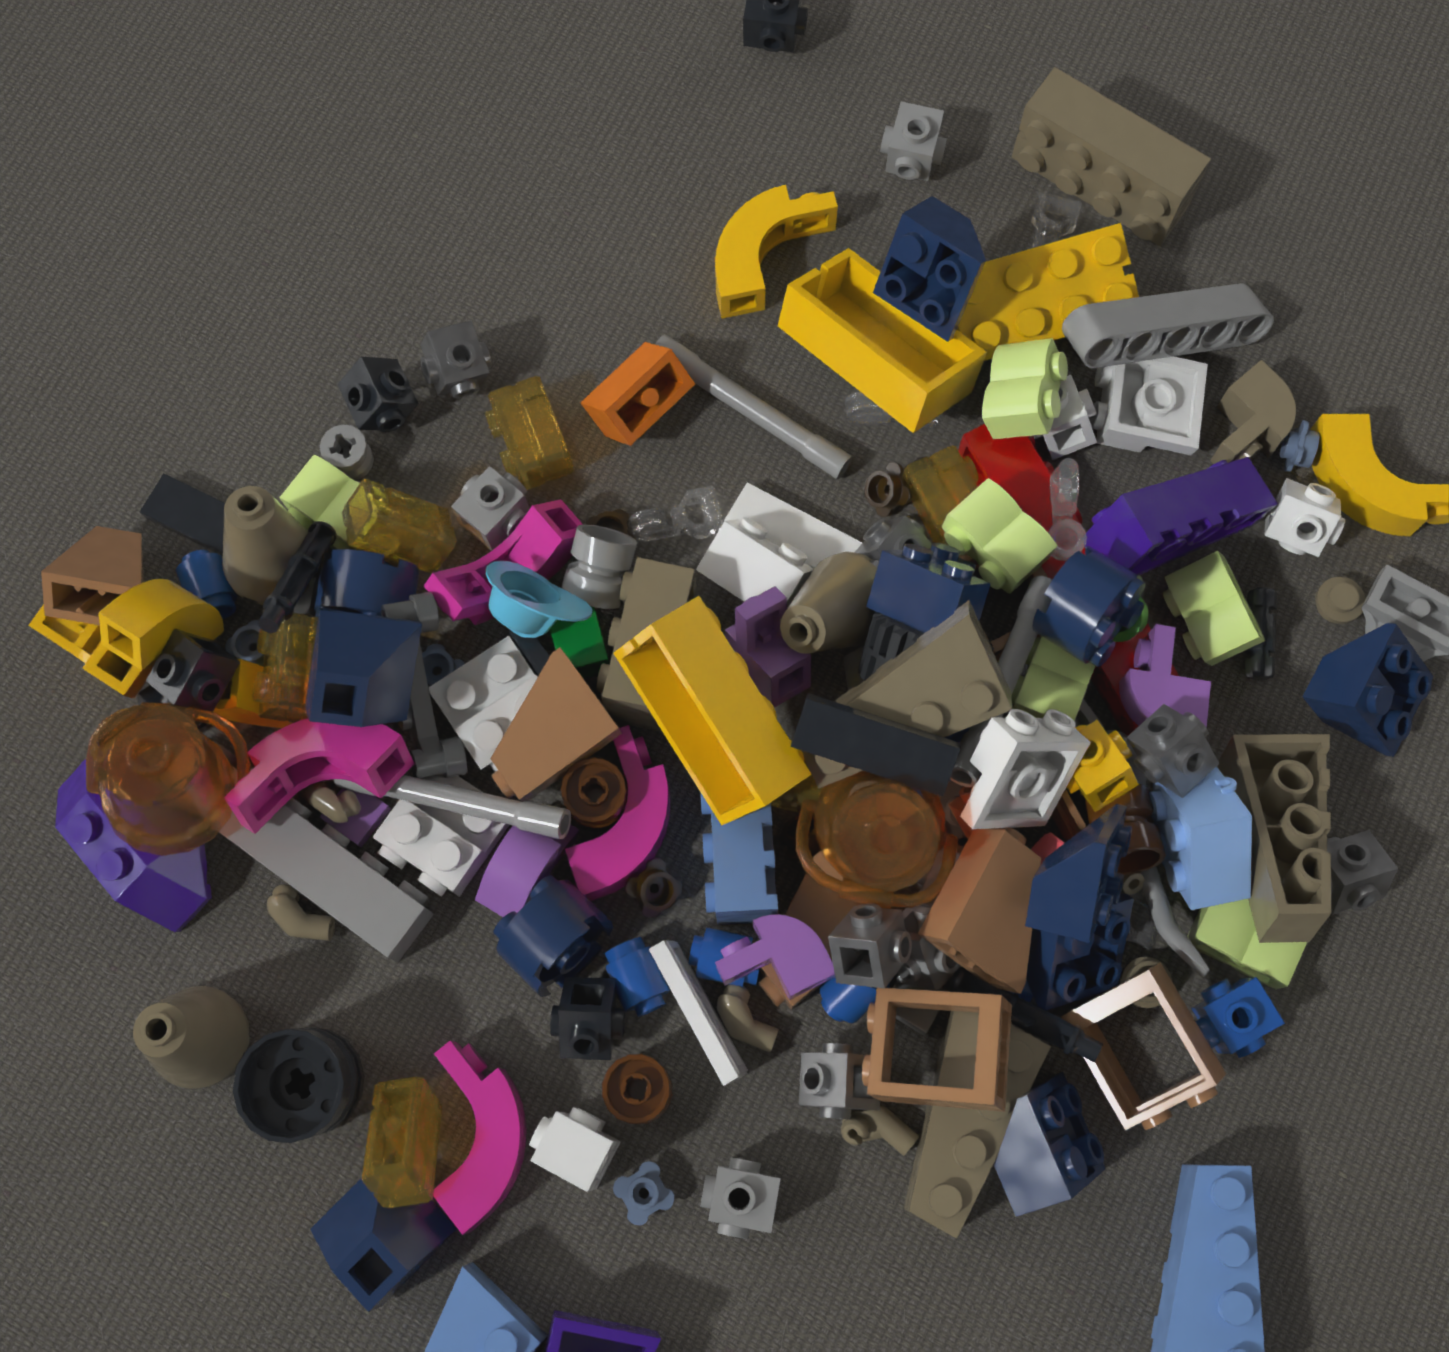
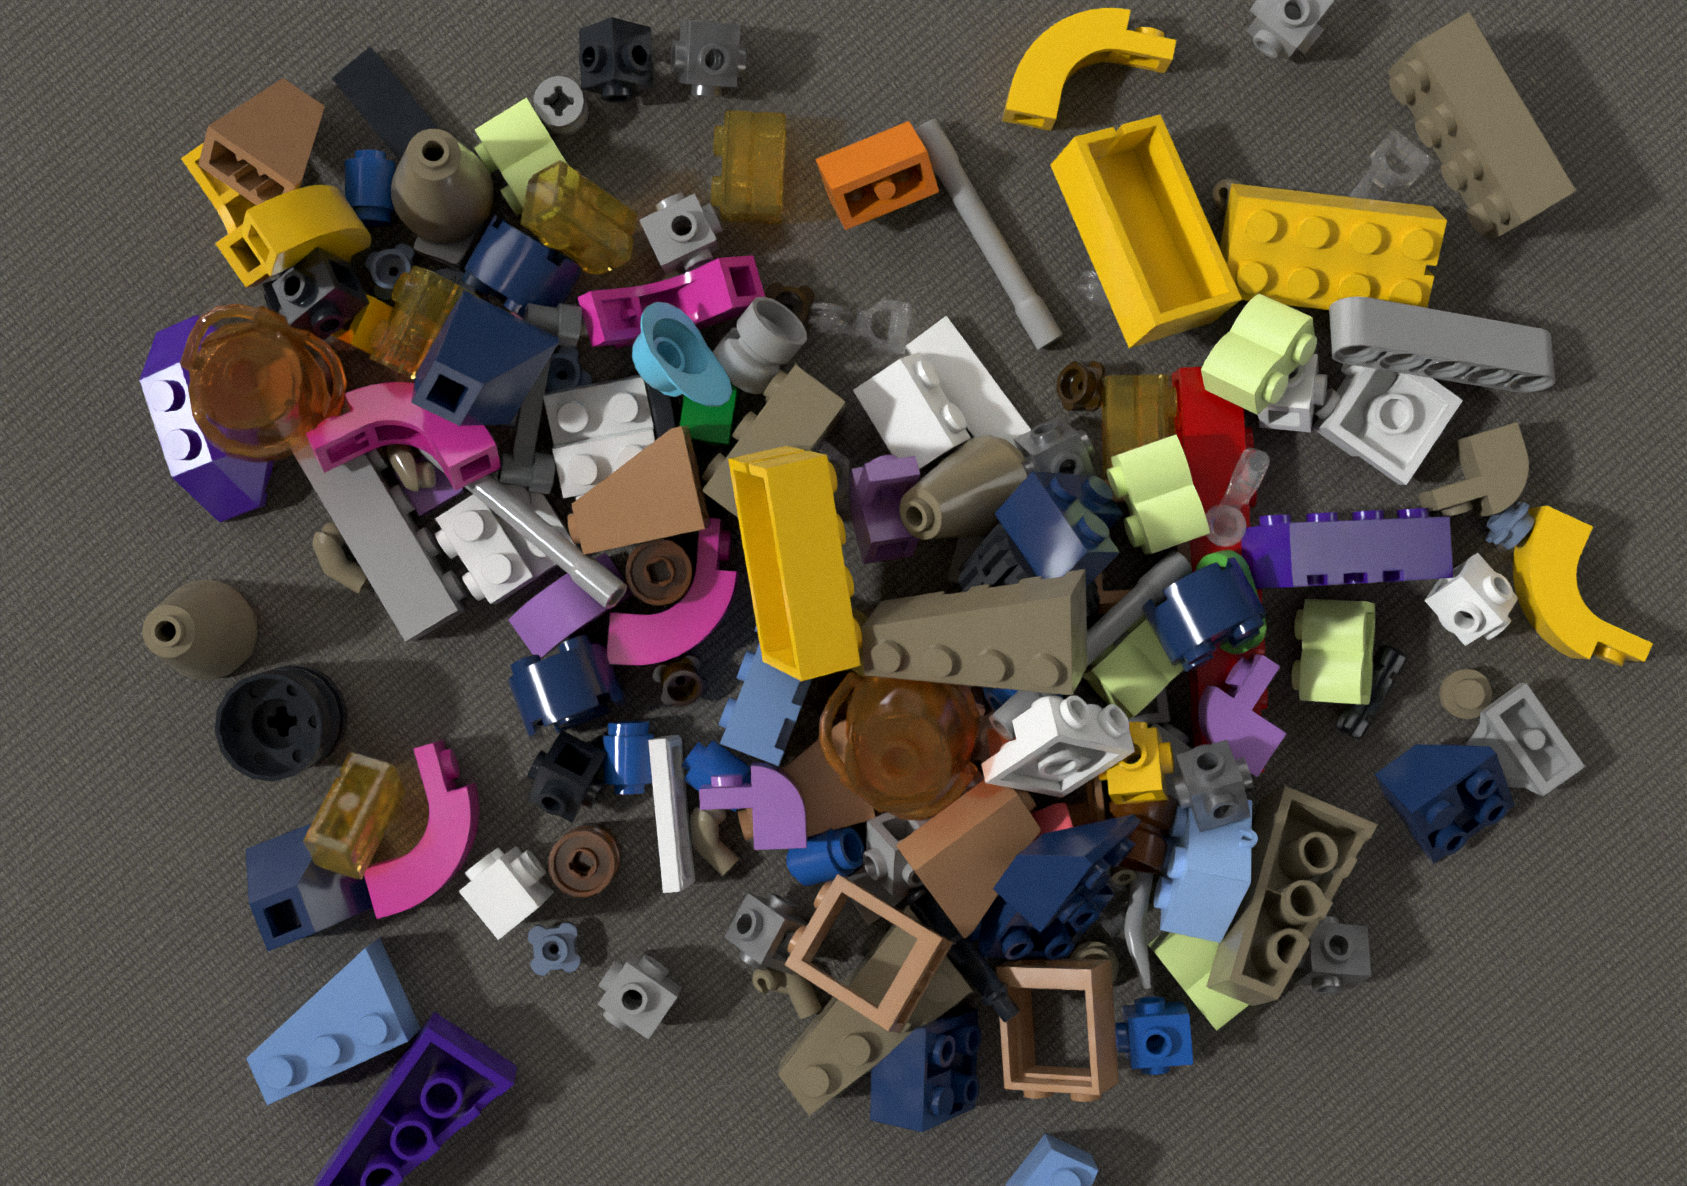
camera: 25 degrees right, 15 degrees up
(300, 570) = (457, 236): black piece -> none
(869, 946) = (845, 838): flat silver brick -> none
(876, 744) = (930, 668): black tile -> none
(932, 266) = (1228, 189): dark blue slope -> none

